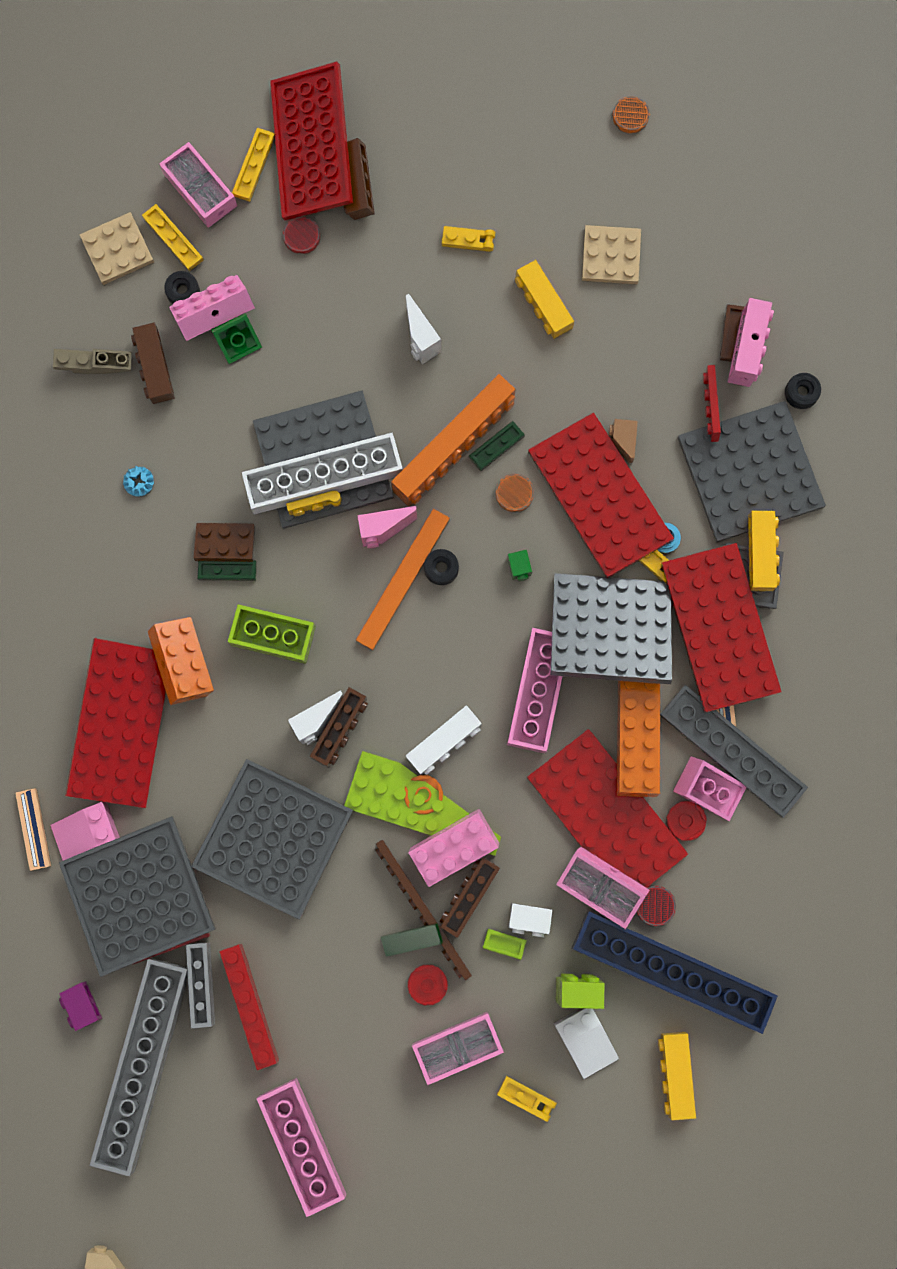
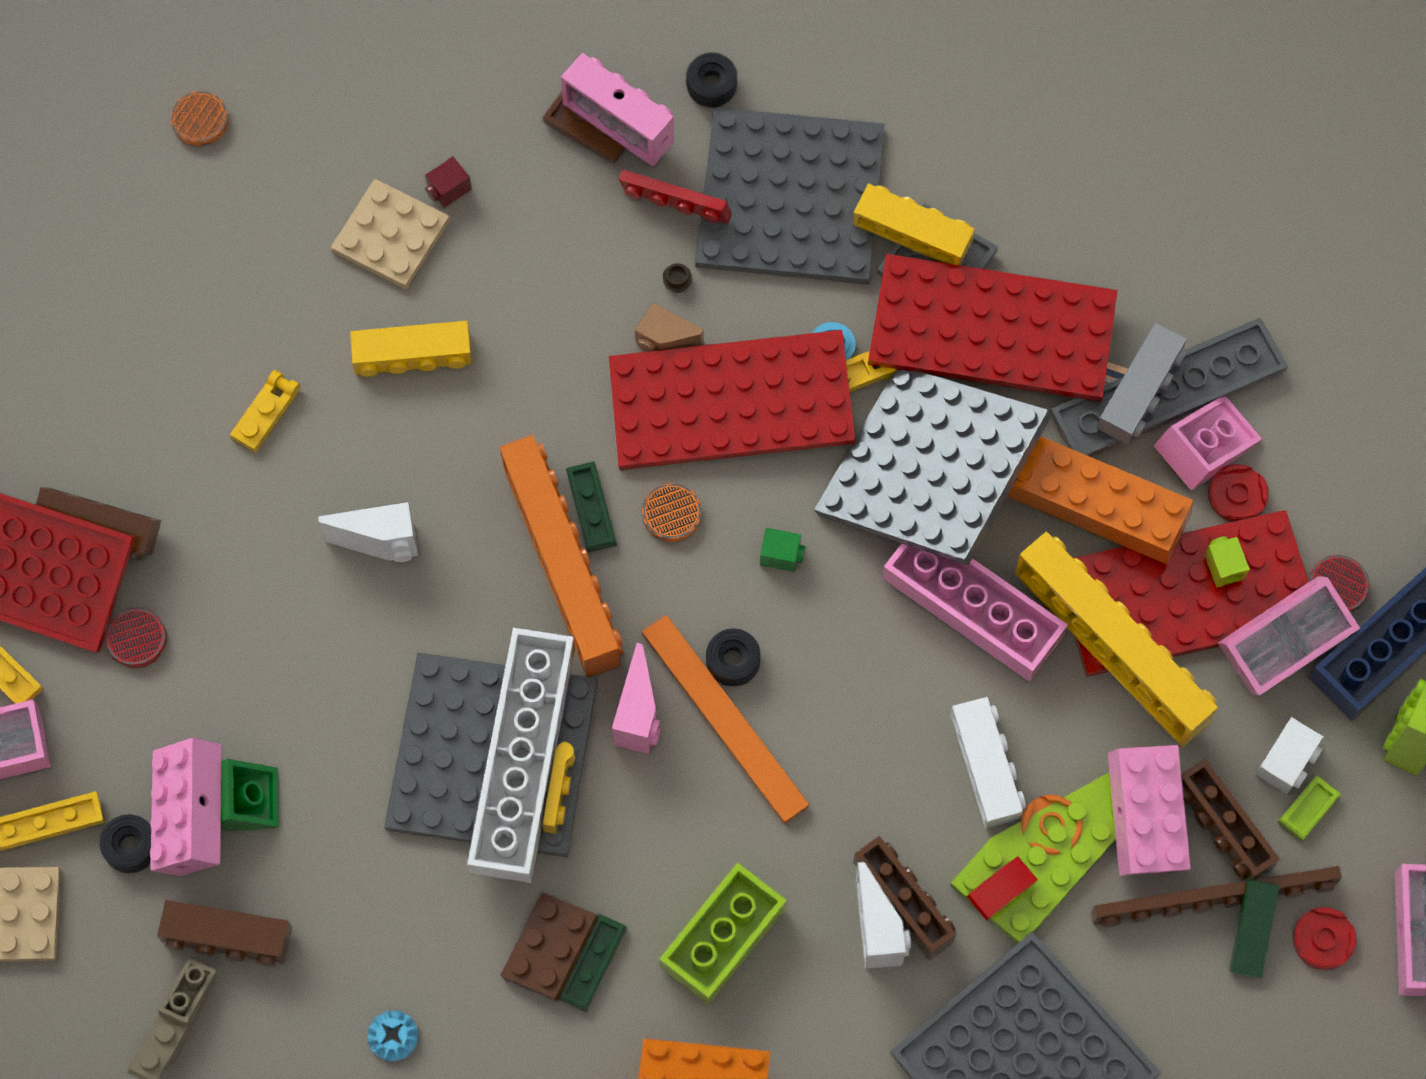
camera: 65 degrees left, 10 degrees down
(368, 781) = (1002, 888): none -> red slope
(549, 782) = (1116, 639): none -> yellow brick
(634, 830) = (1226, 561): none -> lime brick
(658, 270) = (447, 182): none -> dark red brick
(664, 429) = (677, 277): none -> dark brown plate
(725, 732) = (1142, 384): none -> light grey brick

